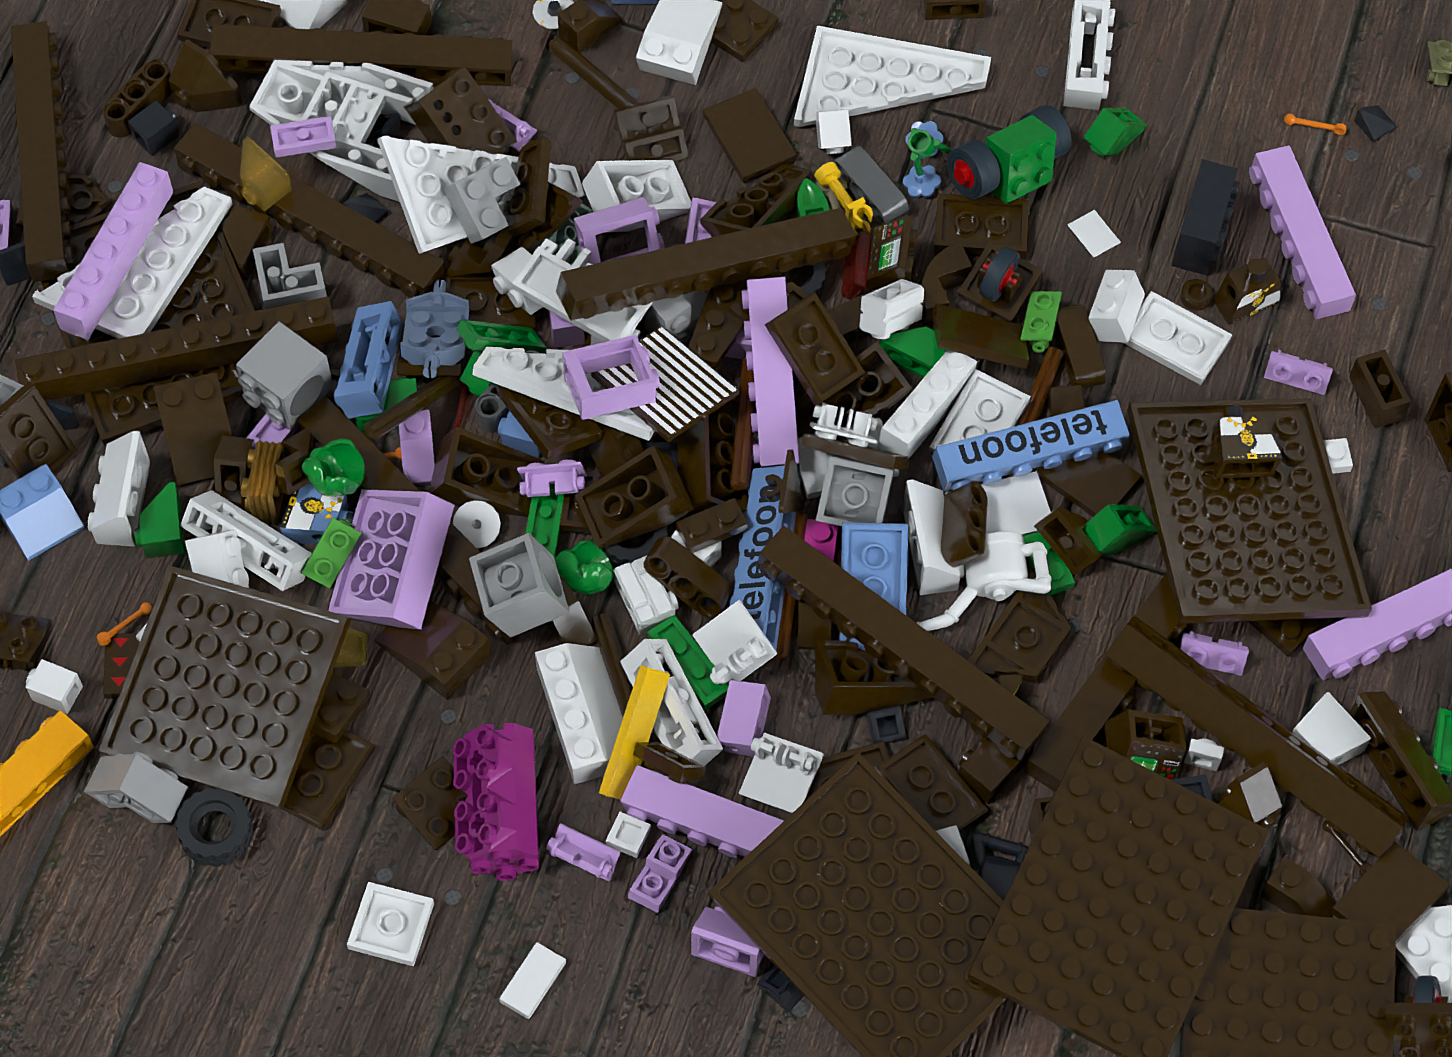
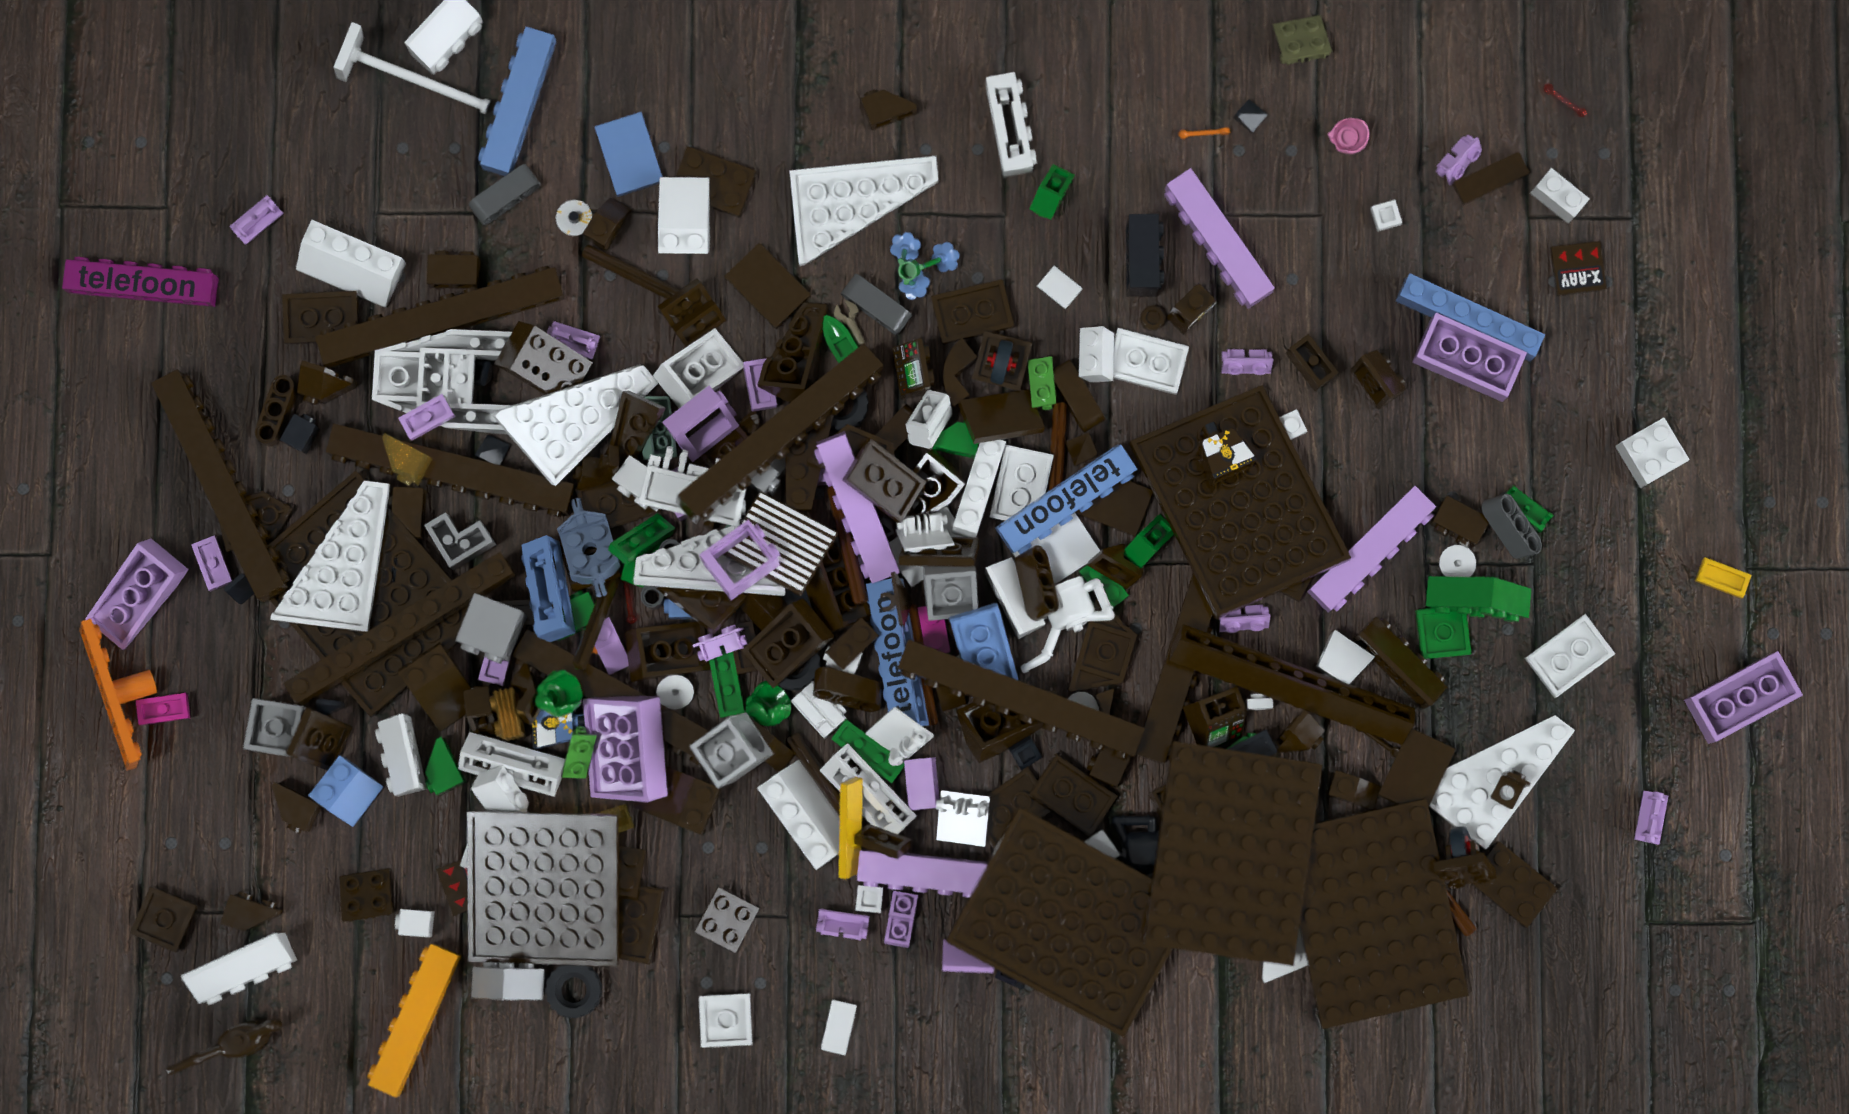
camera: 20 degrees left, 20 degrees up
(104, 637) = (437, 874): orange hinge -> none
(113, 250) = (320, 565): lavender brick -> none
(475, 199) = (581, 428): light grey brick -> none
(499, 817) = (775, 917): magenta brick -> none
(528, 202) = (621, 415): dark brown wing -> none
(828, 176) = (873, 336): yellow bar -> none
(833, 130) = (832, 265): white brick -> none
(856, 266) = (888, 381): clear red tile -> none
(1012, 158) = (984, 251): brick -> none

